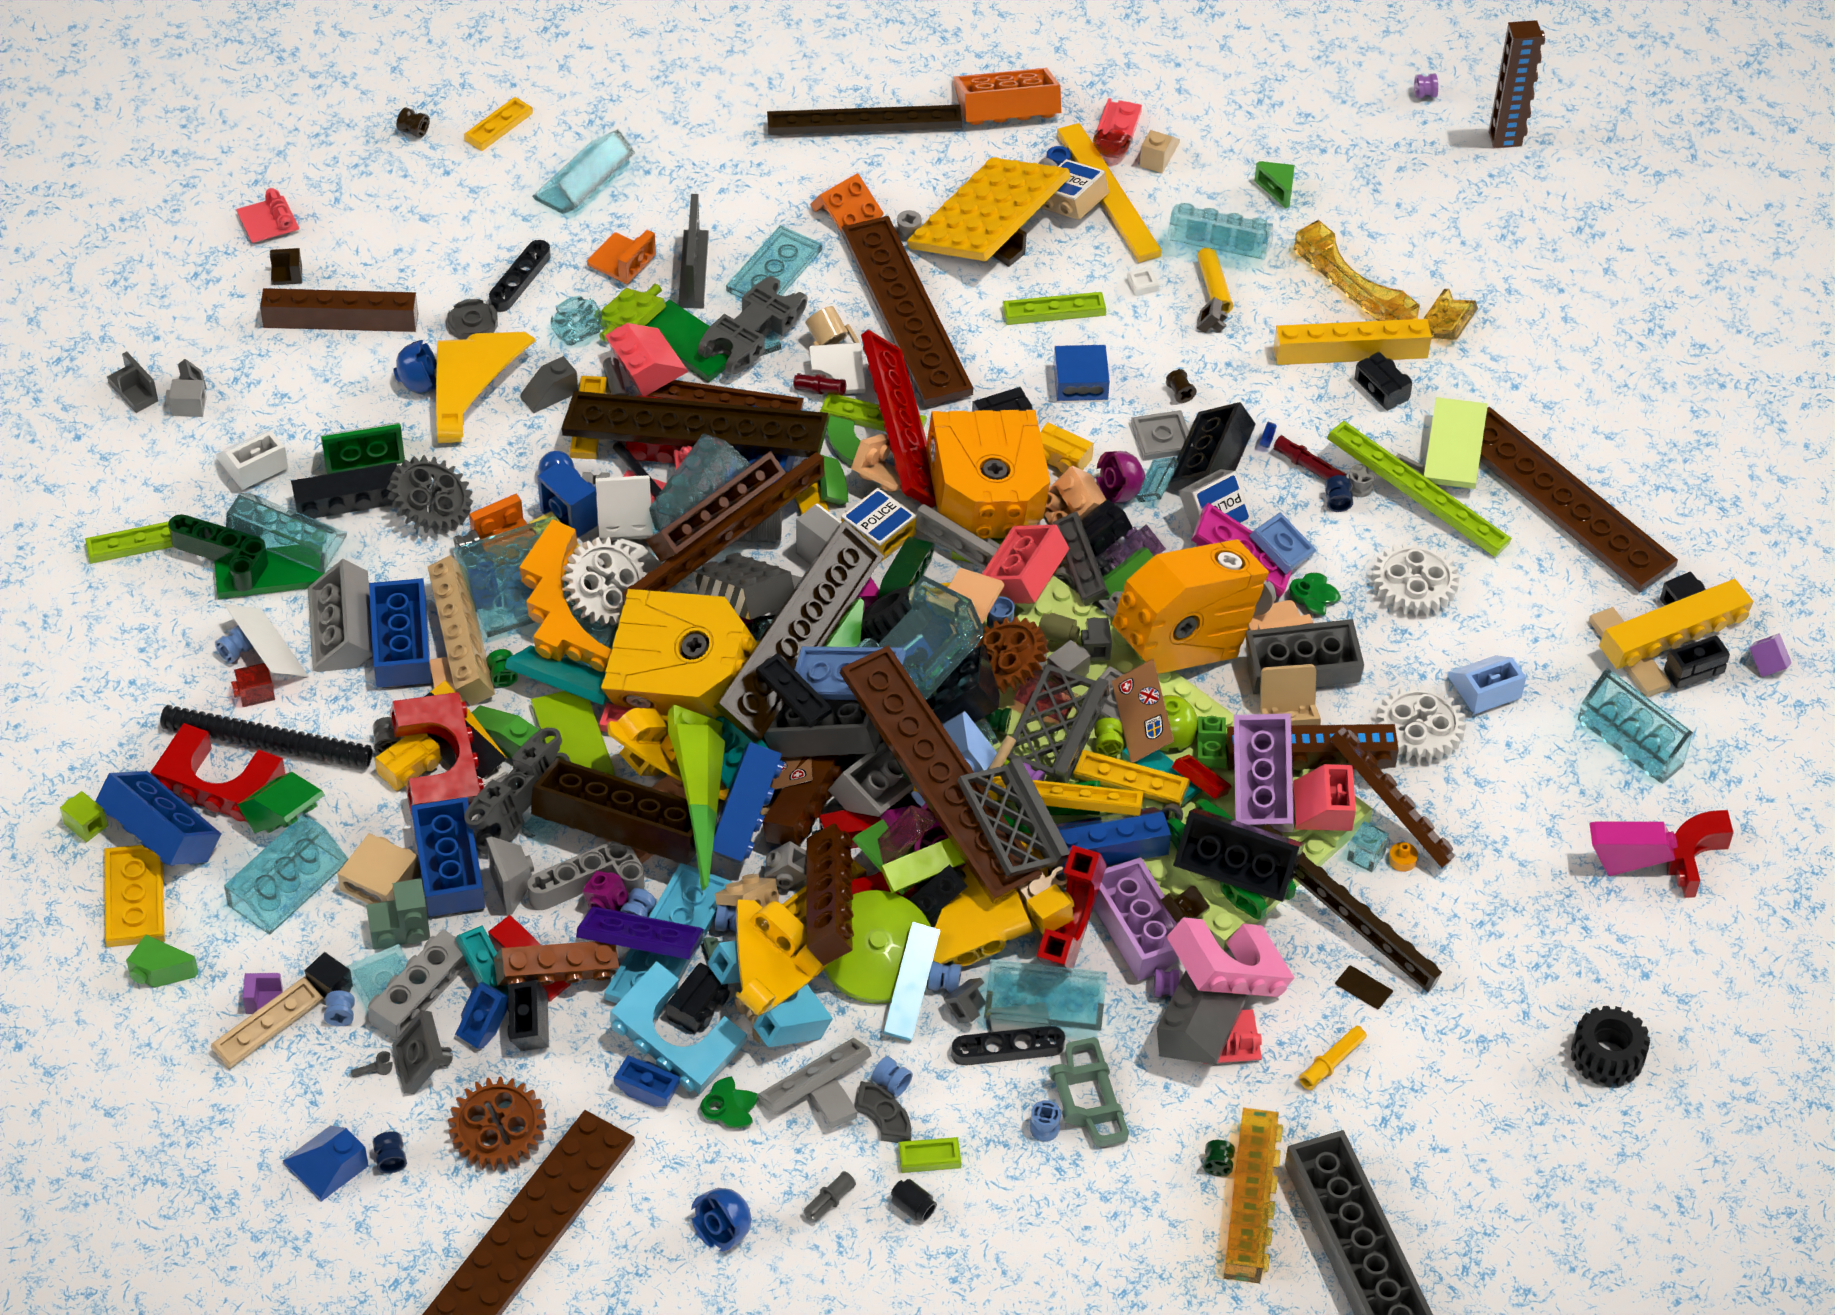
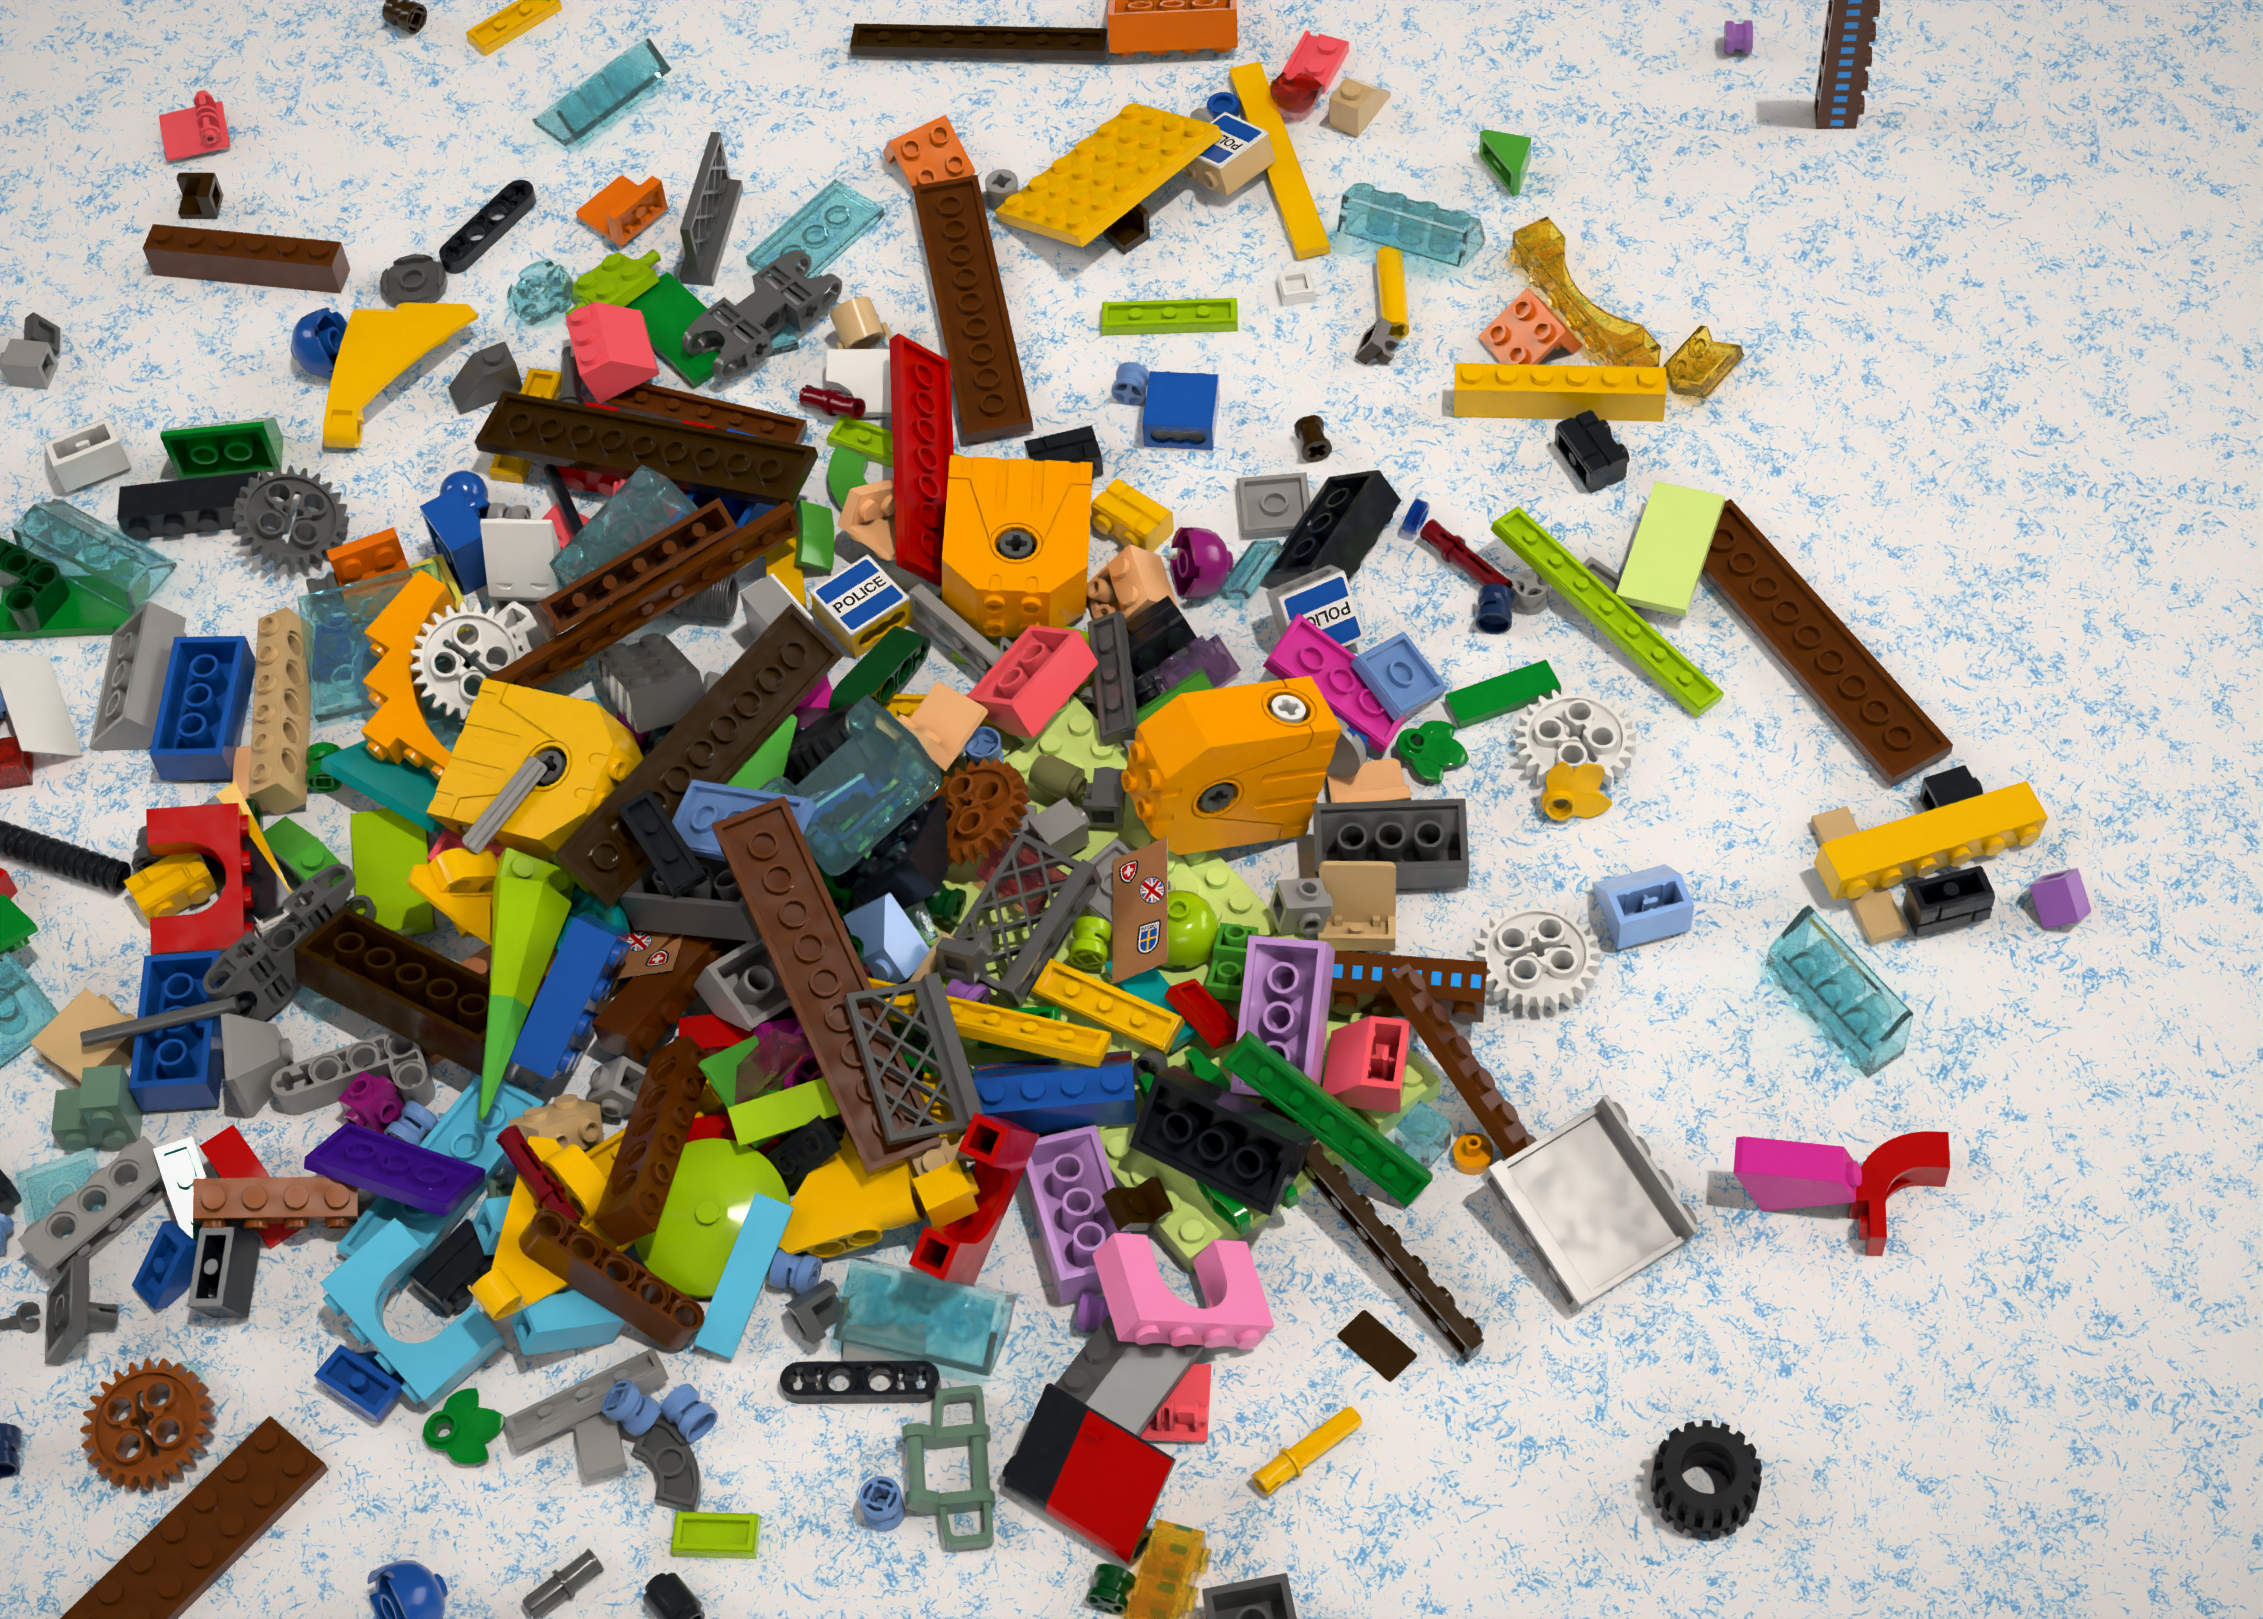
camera: 15 degrees right, 5 degrees up
(437, 848) = (159, 1021): none -> dark grey bar
(667, 674) = (504, 804): none -> light grey axle
(763, 934) = (546, 1190): none -> dark red pin
(821, 989) = (611, 1279): none -> reddish brown beam
(851, 1075) = (630, 1407): none -> medium blue wheel
(1027, 749) = (965, 958): none -> dark grey panel
(1038, 356) = (1130, 383): none -> medium blue wheel
(1192, 1082) = (1089, 1474): none -> red door
(1251, 698) = (1300, 906): none -> light grey brick
(1297, 826) = (1327, 1118): none -> green tile
(1319, 301) = (1527, 332): none -> orange bracket
(1355, 551) = (1502, 694): none -> green tile
(1427, 610) = (1577, 788): none -> yellow plate
(1495, 878) = (1591, 1204): none -> panel

